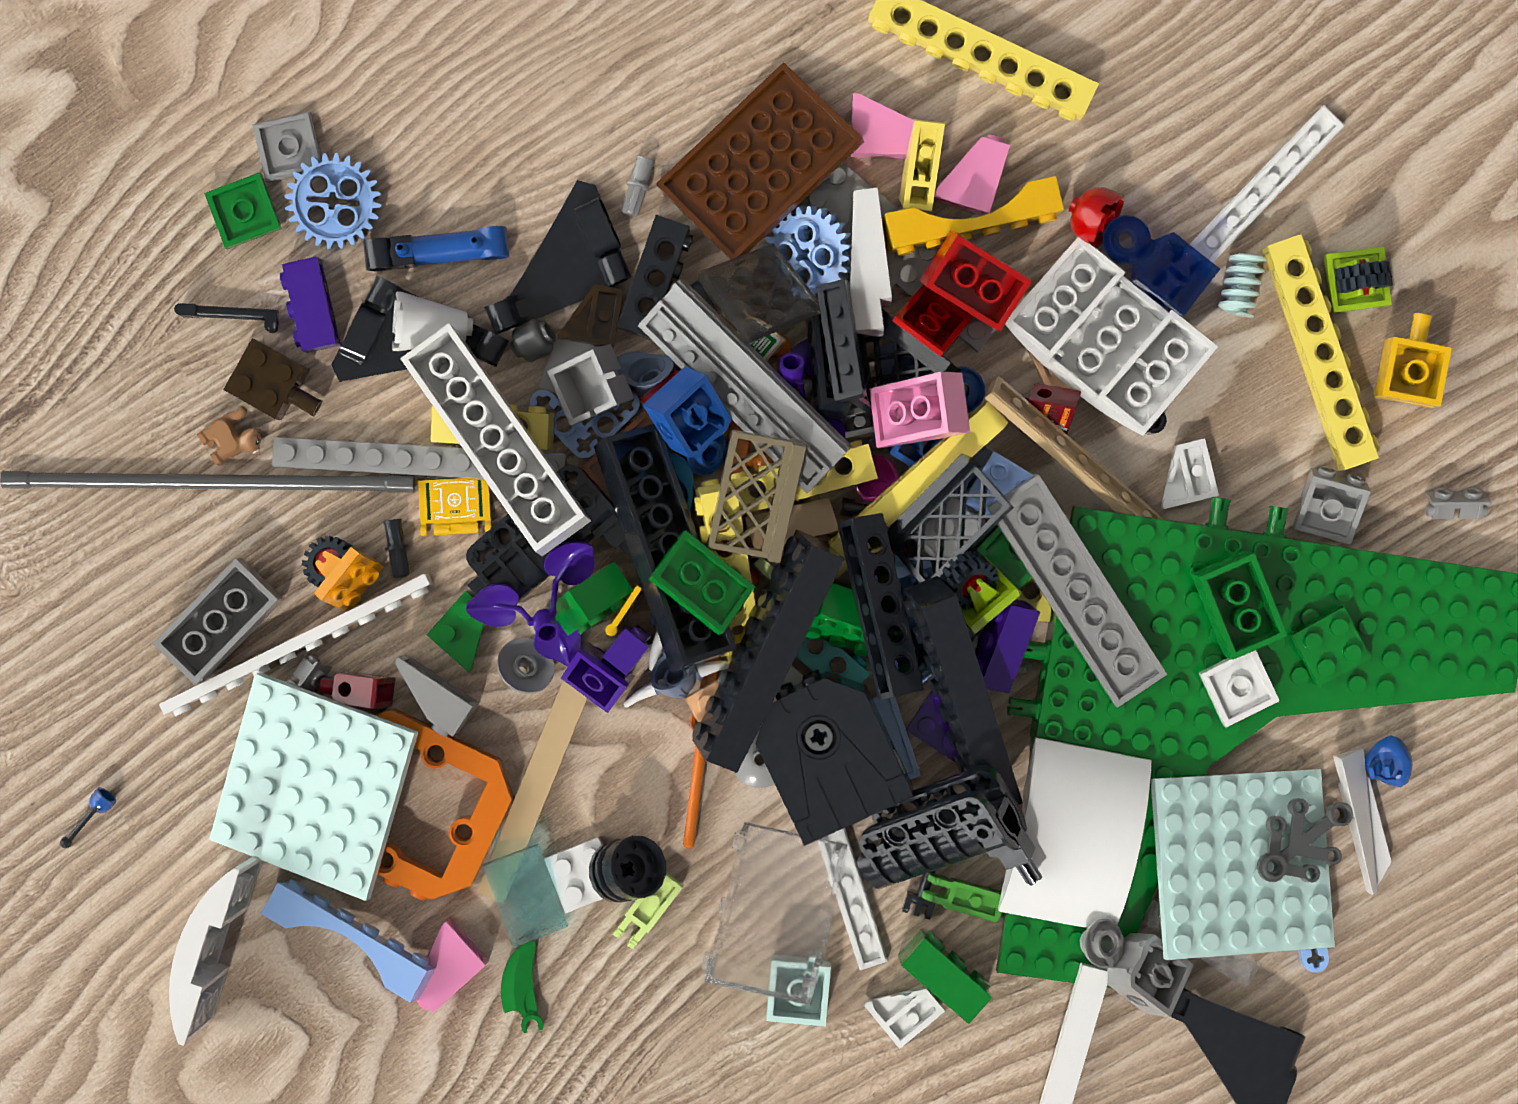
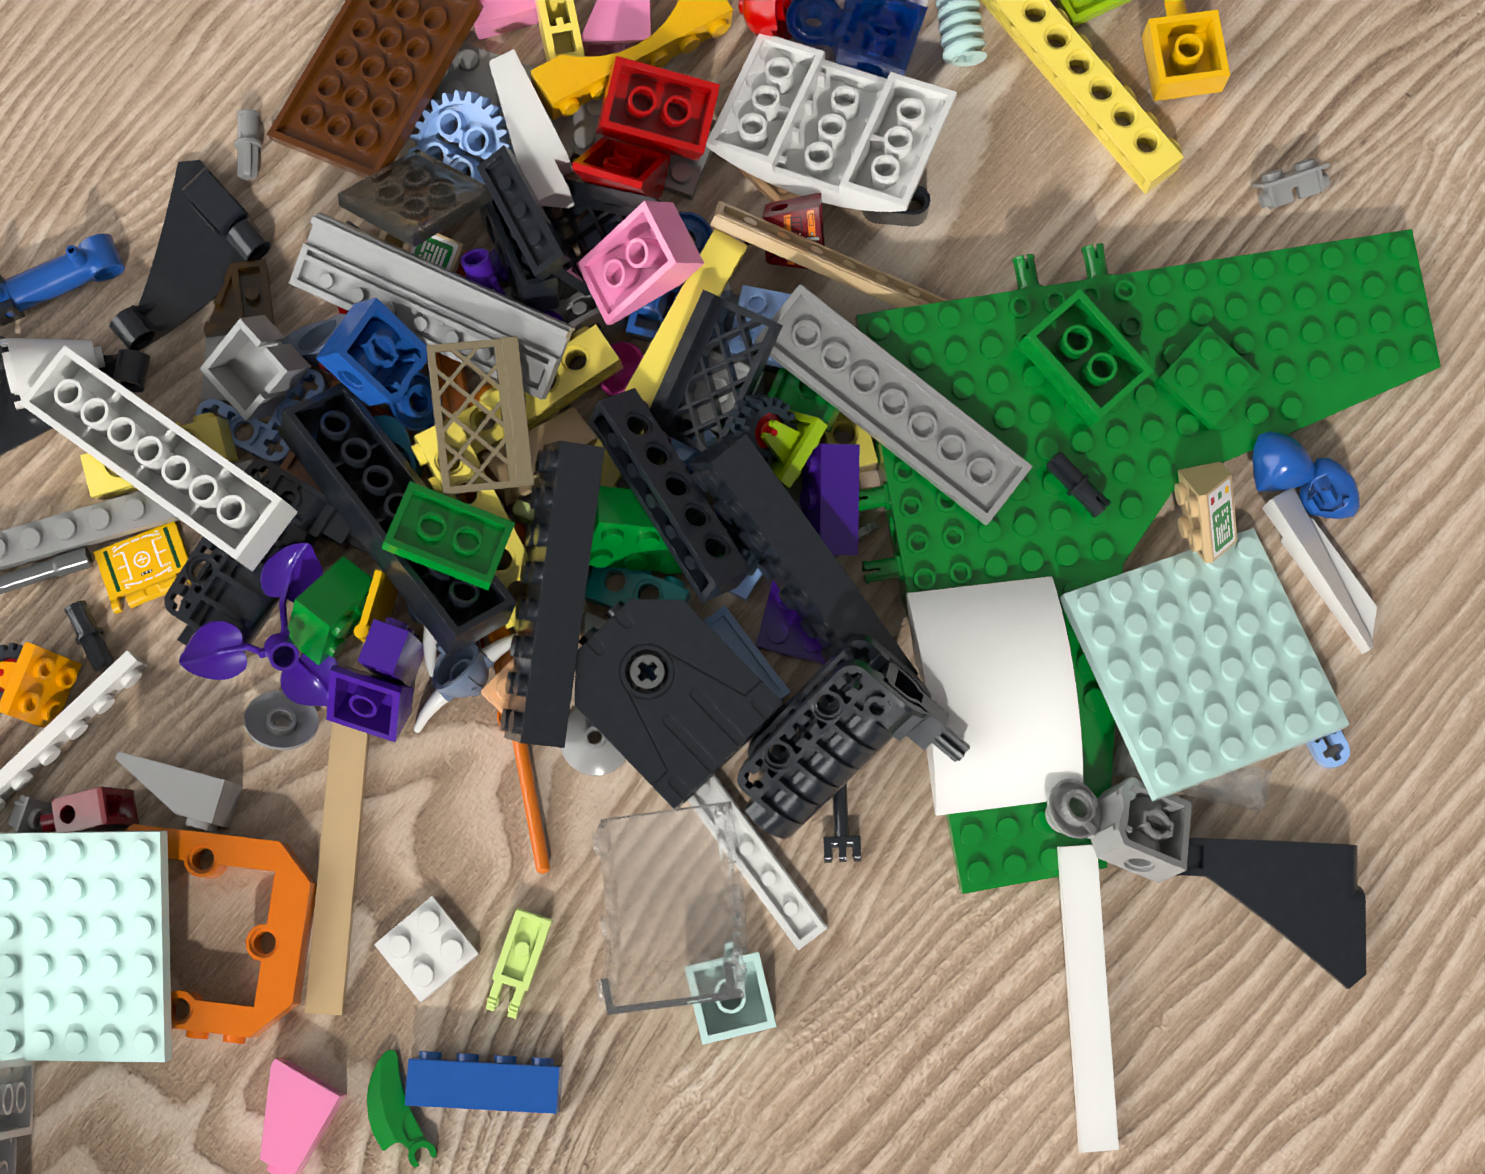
camera: 15 degrees left, 10 degrees down
(399, 969) = (231, 1136): light blue arch -> none
(458, 633) = (193, 710): green wing -> none
(525, 895) = (364, 996): clear light blue tile -> none
(532, 340) = (178, 348): dark grey head -> none
(594, 990) = (484, 1084): none -> blue brick
(640, 871) = (487, 904): black wheel -> none
(662, 232) = (293, 182): black brick -> none
(905, 1013) = (870, 983): white wing -> none
(945, 975) = (902, 916): green brick -> none
(965, 897) = (894, 817): bright green hinge -> none
(1189, 475) = (979, 251): white wing -> none
(1197, 698) = (1077, 484): none -> black axle
(1238, 687) = (1121, 456): white plate -> none
(1289, 748) = (1207, 509): none -> tan slope
(1299, 842) = (1261, 614): dark grey plant -> none
(1332, 505) = (1151, 229): light grey plate -> none
(1360, 729) = (1280, 463): none -> blue piece

